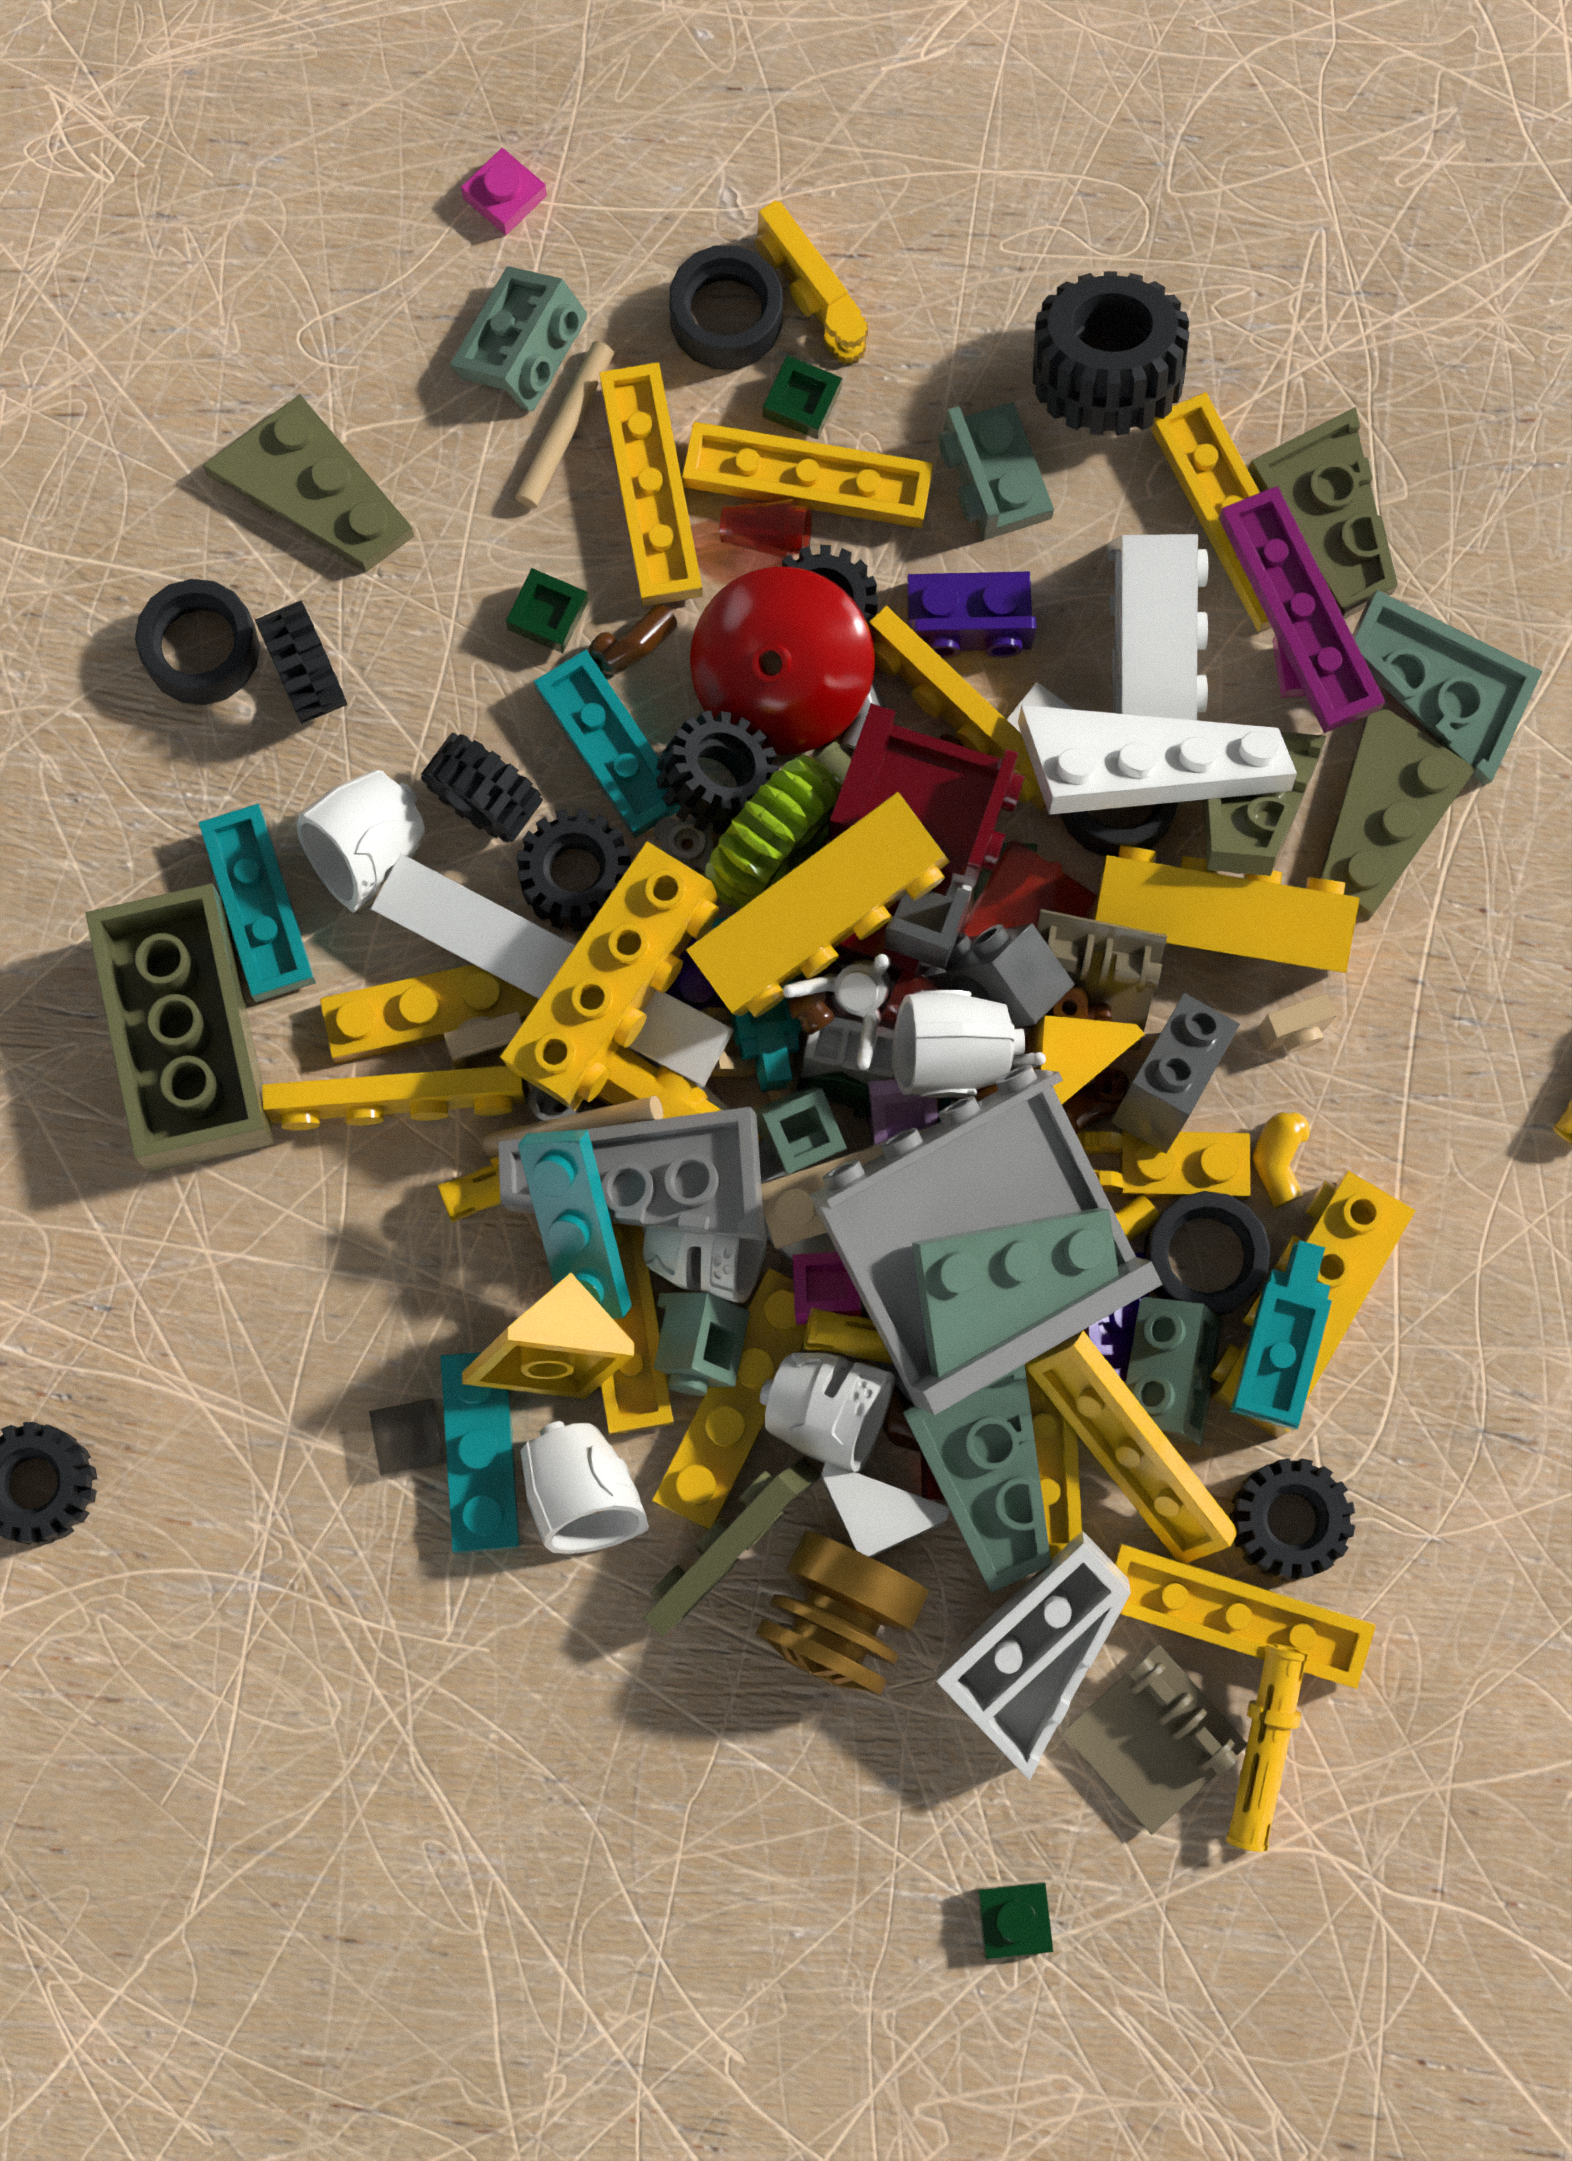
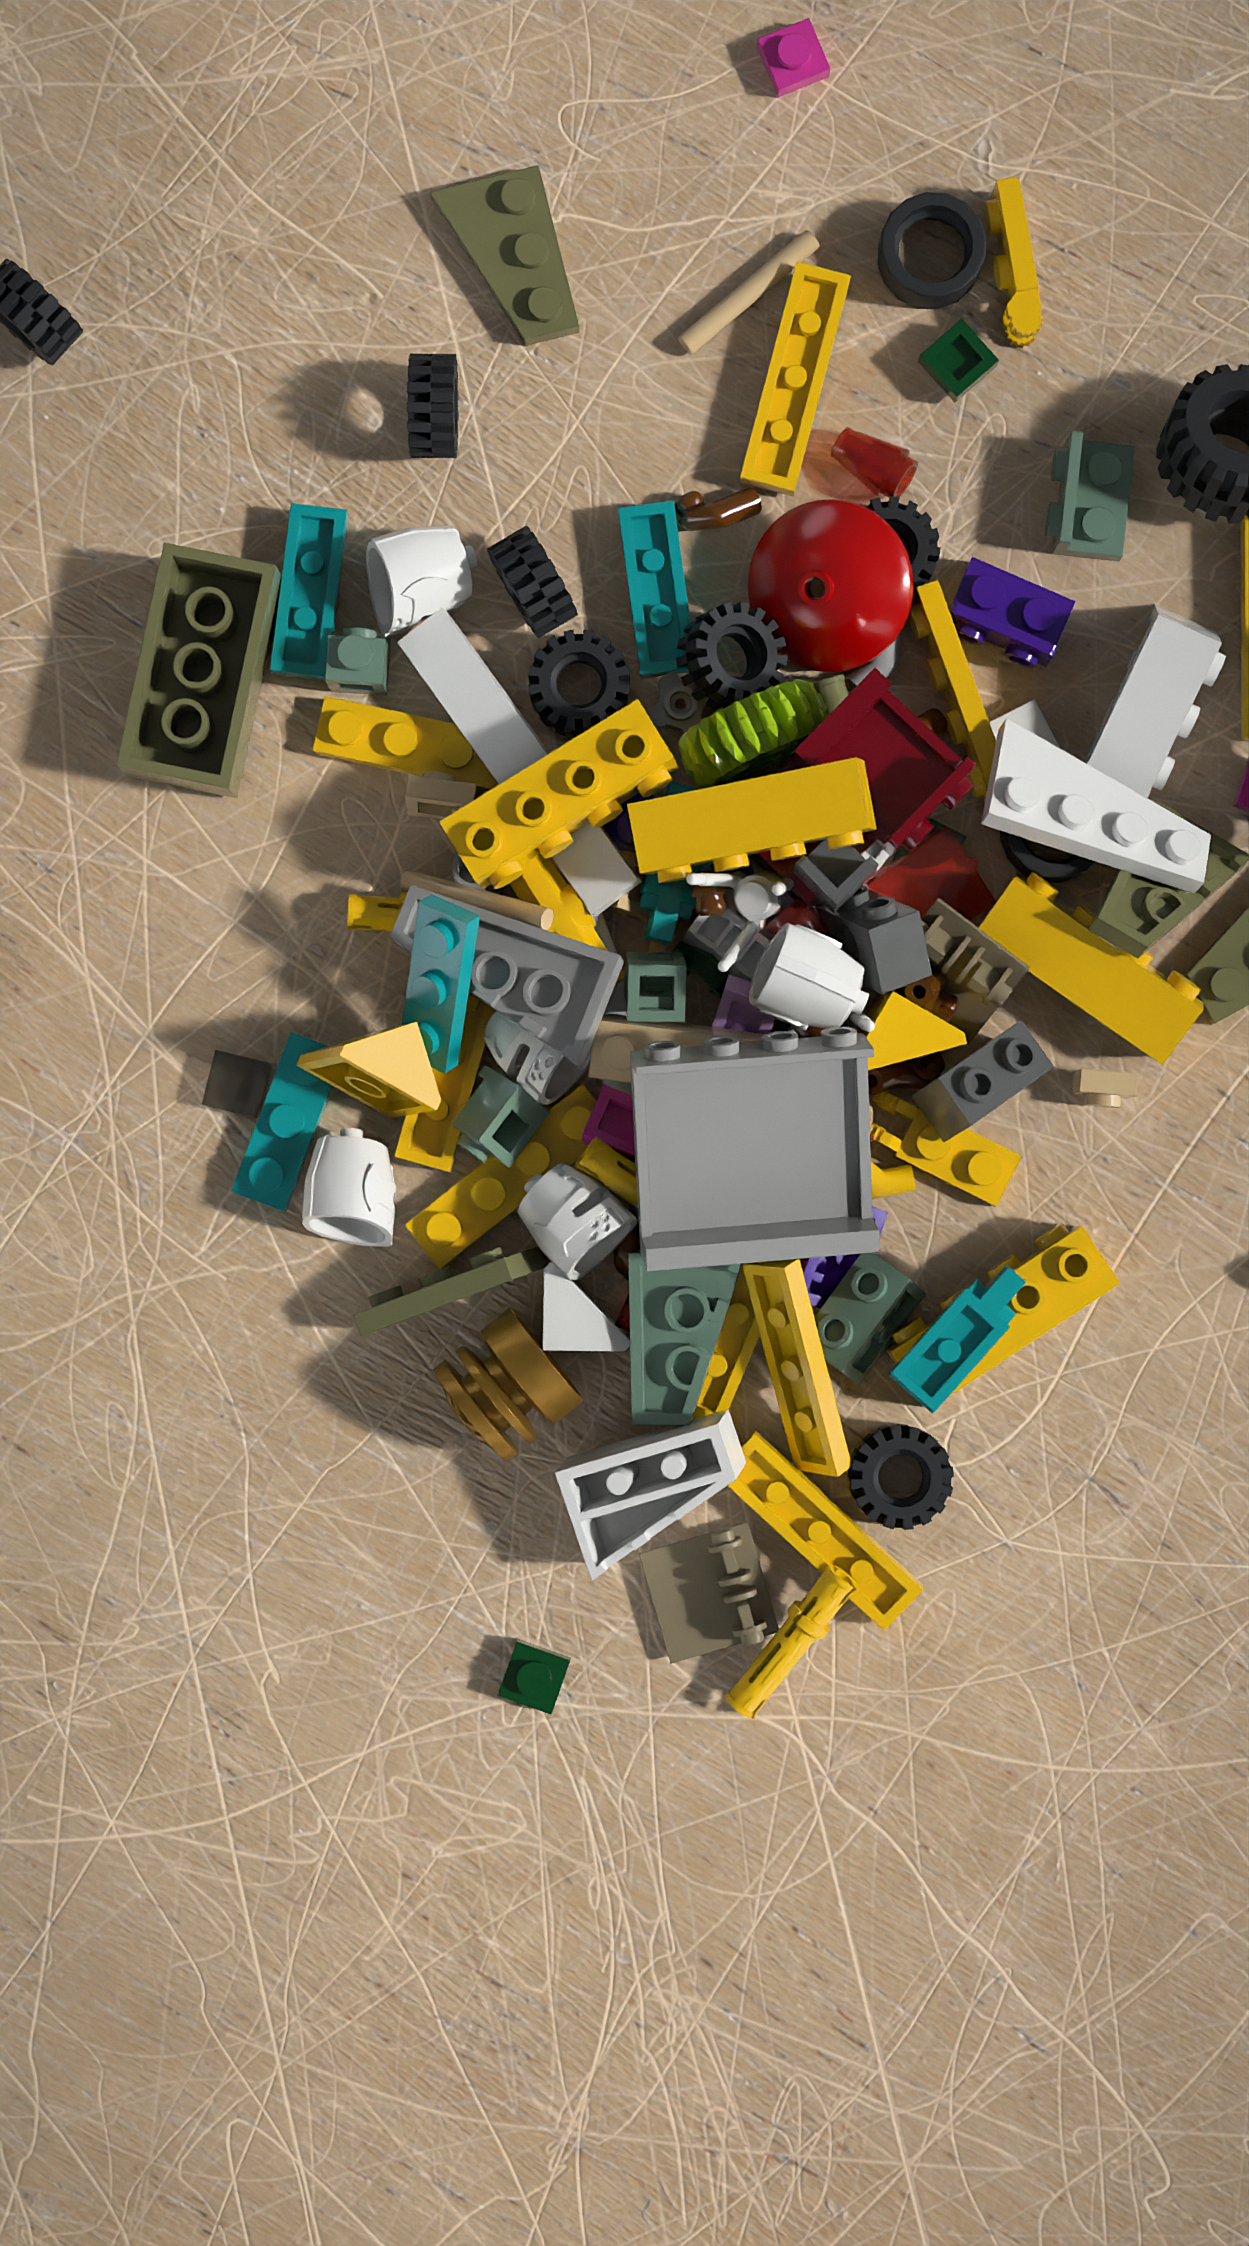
camera: 30 degrees right, 10 degrees up
(186, 598) = (346, 304): black tyre -> none
(339, 948) = (358, 662): none -> sand green brick
(370, 1097) = (324, 798): yellow plate -> none
(521, 335) = (747, 197): sand green bracket -> none
(547, 610) = (658, 451): dark green plate -> none
(811, 472) = (930, 431): yellow plate -> none
(1005, 1278) = (757, 1189): sand green wing -> none
(1242, 1222) = (979, 1228): black tyre -> none
(1274, 1154) = (1034, 1181): yellow arm -> none

